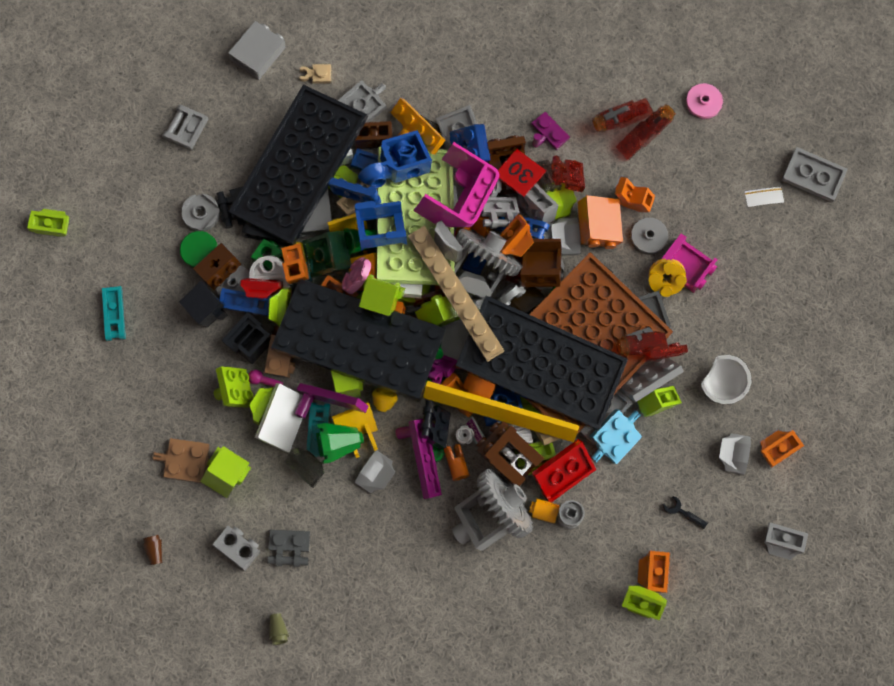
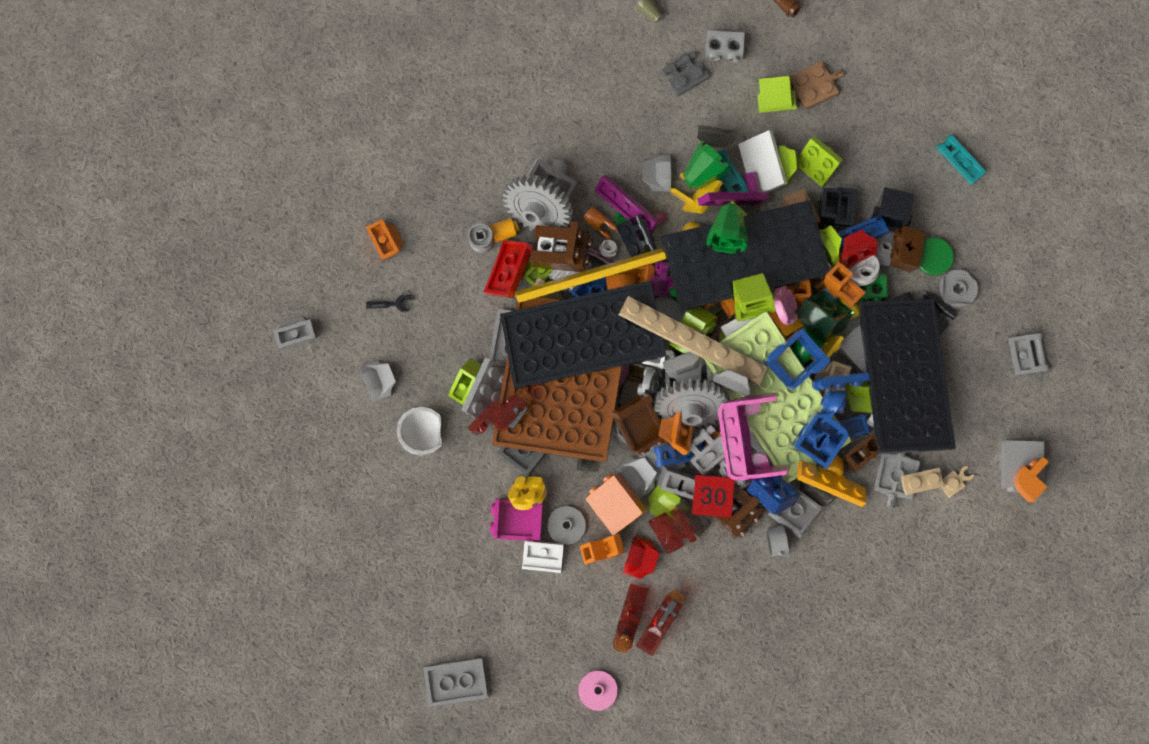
camera: 155 degrees right, 5 degrees up
(48, 222) = (1073, 198): lime slope -> none
(256, 377) = (809, 185): dark pink bar -> none
(264, 31) = (1026, 481): none -> orange brick
(344, 86) = (922, 481): none -> tan plate
(361, 360) = (728, 230): none -> green cone
(490, 114) = (777, 541): none -> light grey piece
(549, 131) = (716, 565): magenta plate -> none
(605, 173) = (641, 558): none -> red slope
(616, 436) = (484, 327): medium azure plate -> none
(644, 602) = (378, 207): lime slope -> none
(684, 222) = (543, 556): none -> white plate
(764, 196) = (488, 633): white sticker -> none
(780, 446) = (343, 408): orange slope -> none

